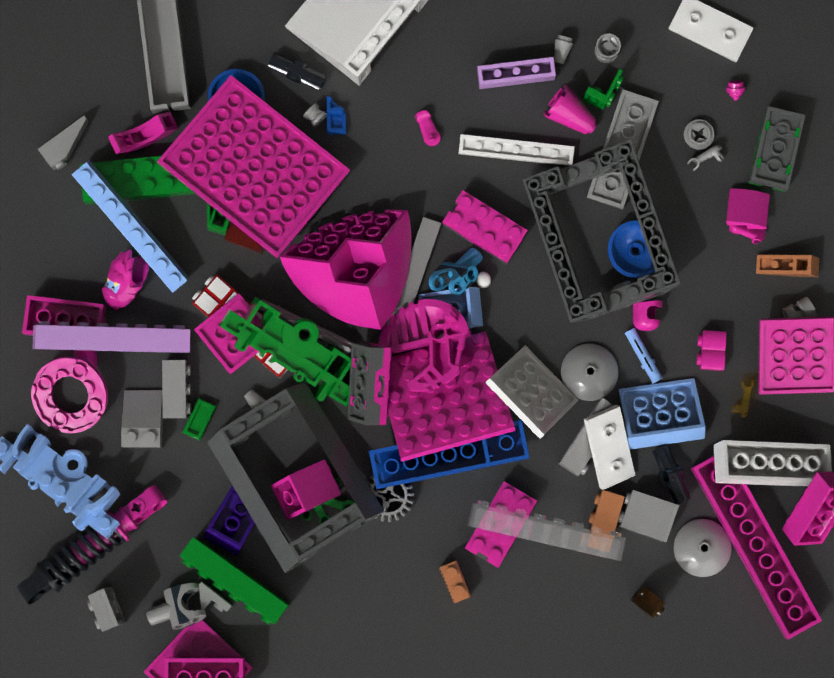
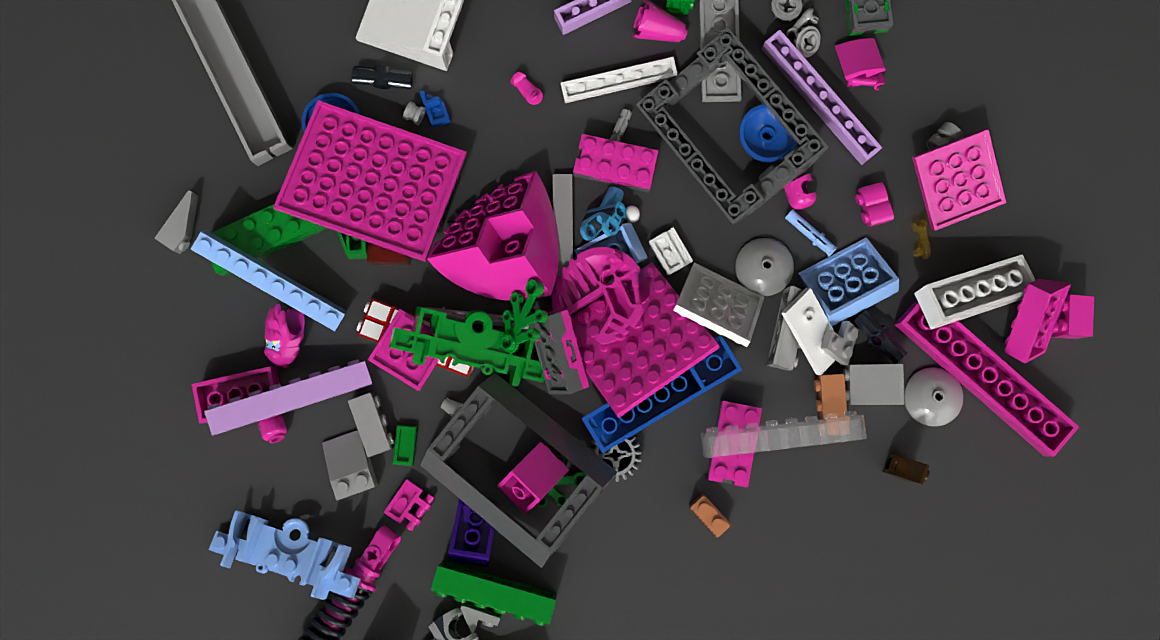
camera: 25 degrees left, 0 degrees up
(48, 410) = (251, 487): dark pink plate -> none
(143, 135) = (255, 190): dark pink arch -> none
(180, 470) = (404, 501): none -> dark pink plate
(332, 356) = (512, 339): none -> green plant
(502, 194) = (621, 125): none -> light grey axle
(506, 327) = (670, 251): none -> white plate
(632, 470) = (840, 345): none -> light grey plate
(697, 233) = (821, 97): none -> lavender brick
(712, 176) = (813, 38): none -> light grey gear
(788, 265) = (916, 99): nougat slope -> none

